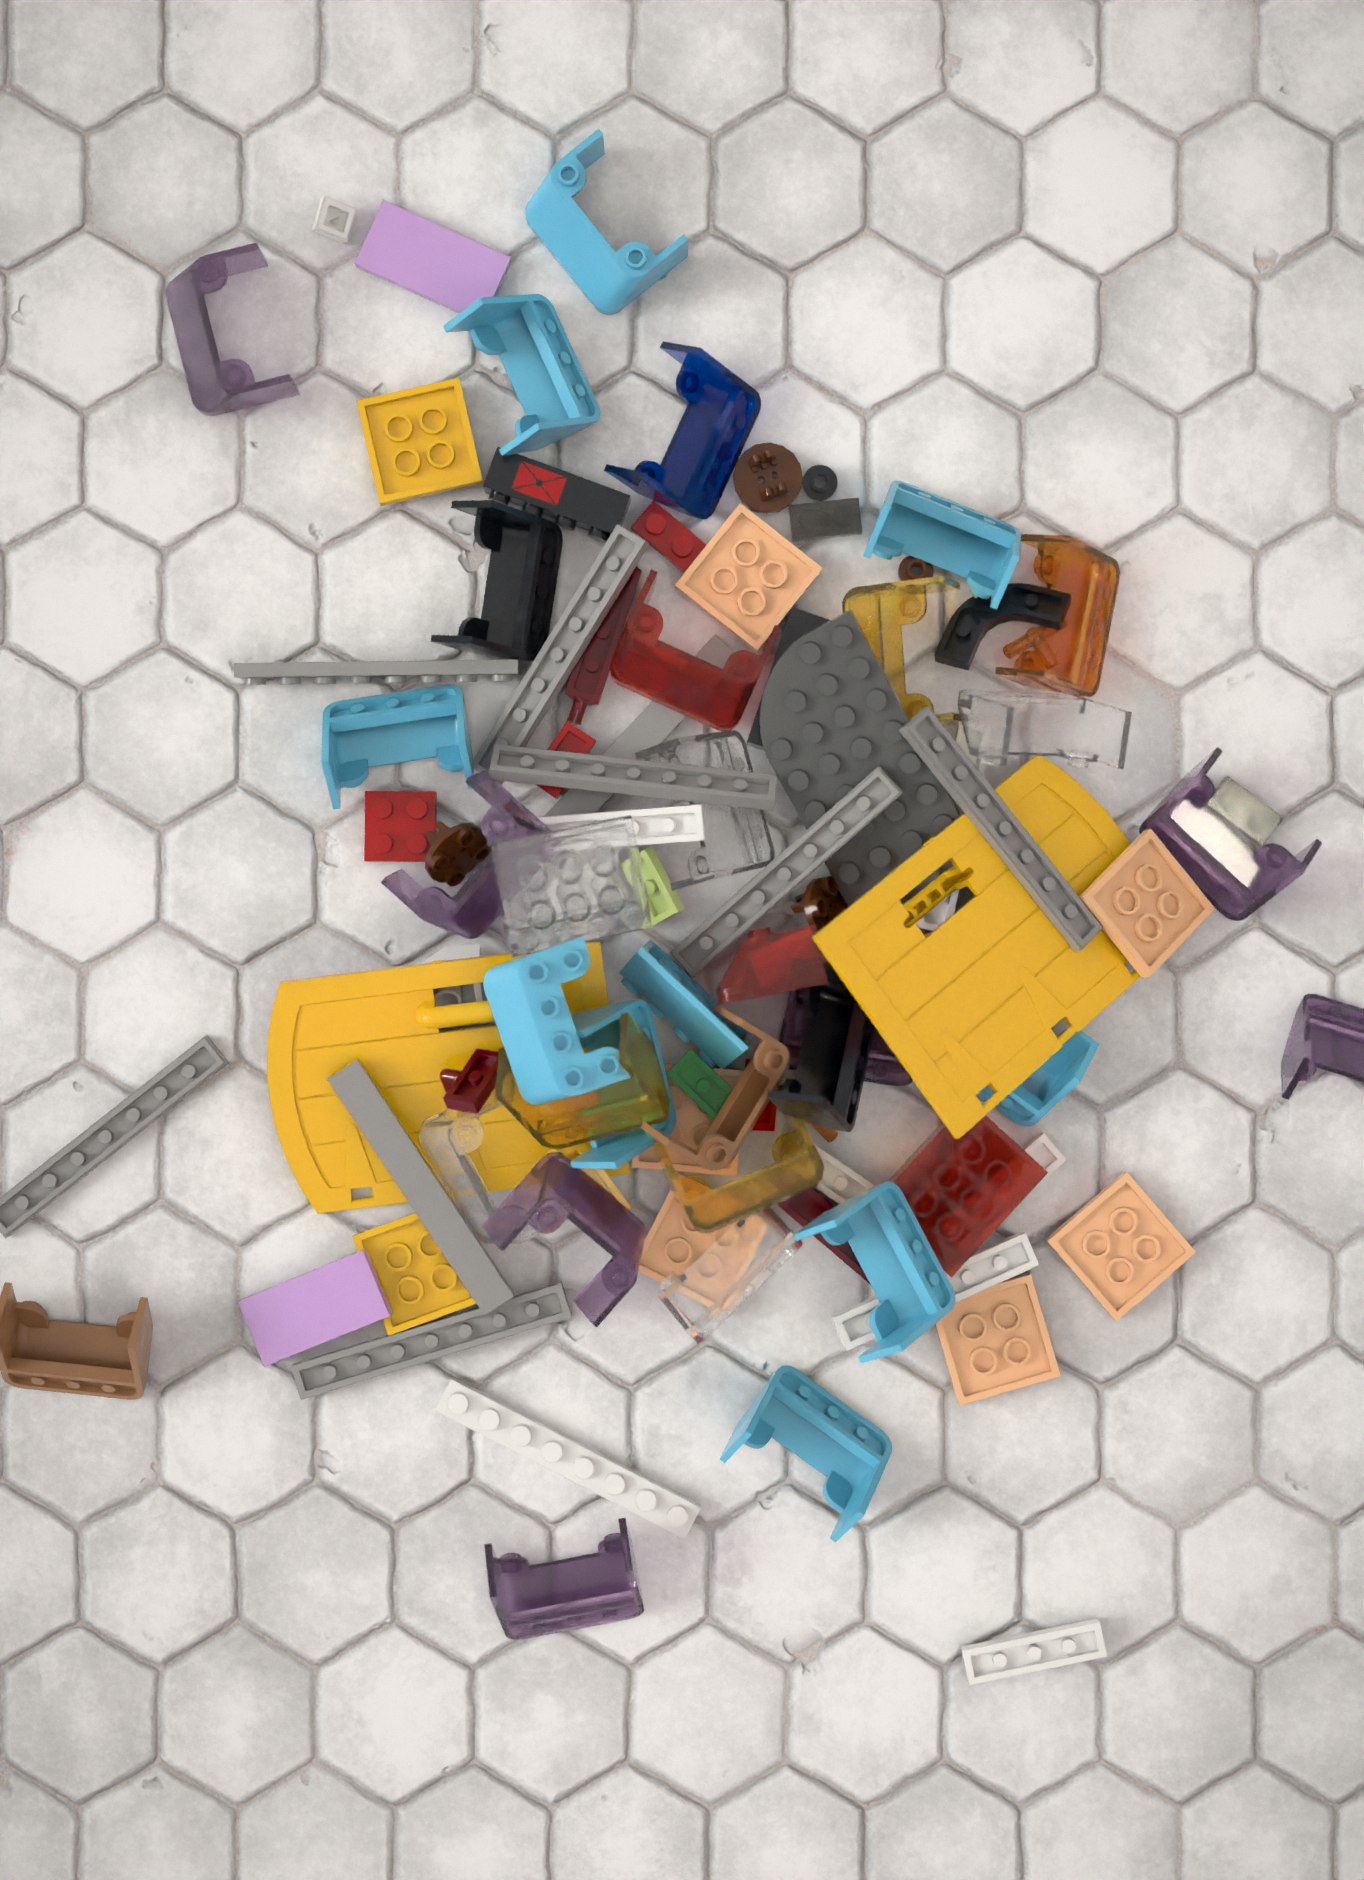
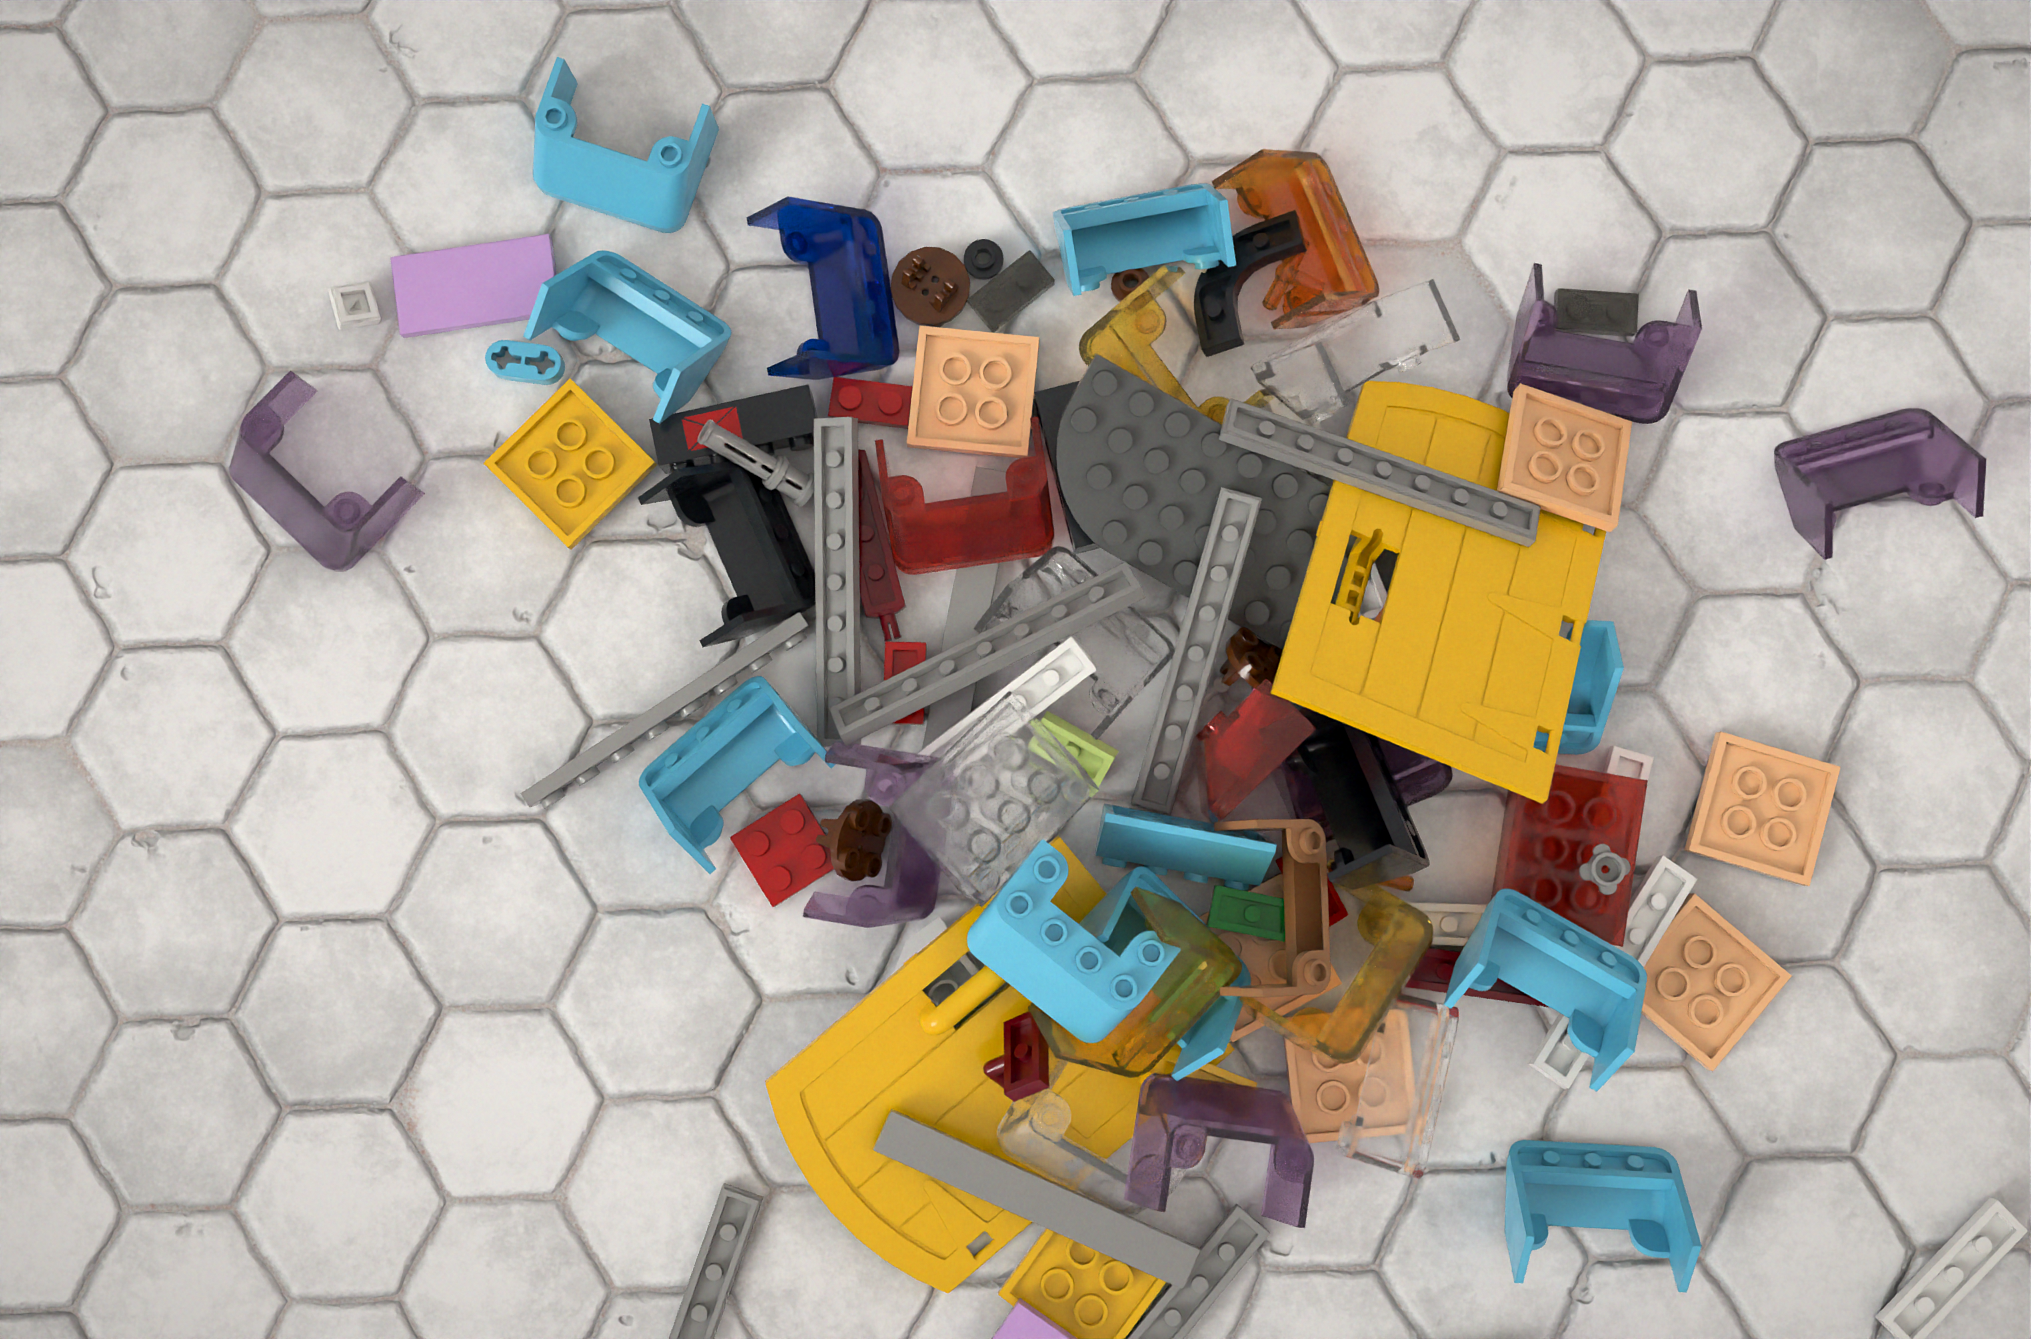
camera: 20 degrees left, 5 degrees down
(438, 337) = (524, 371): none -> medium azure beam
(565, 544) = (777, 469): none -> light grey pin
(970, 1224) = (1617, 869): none -> light grey plate

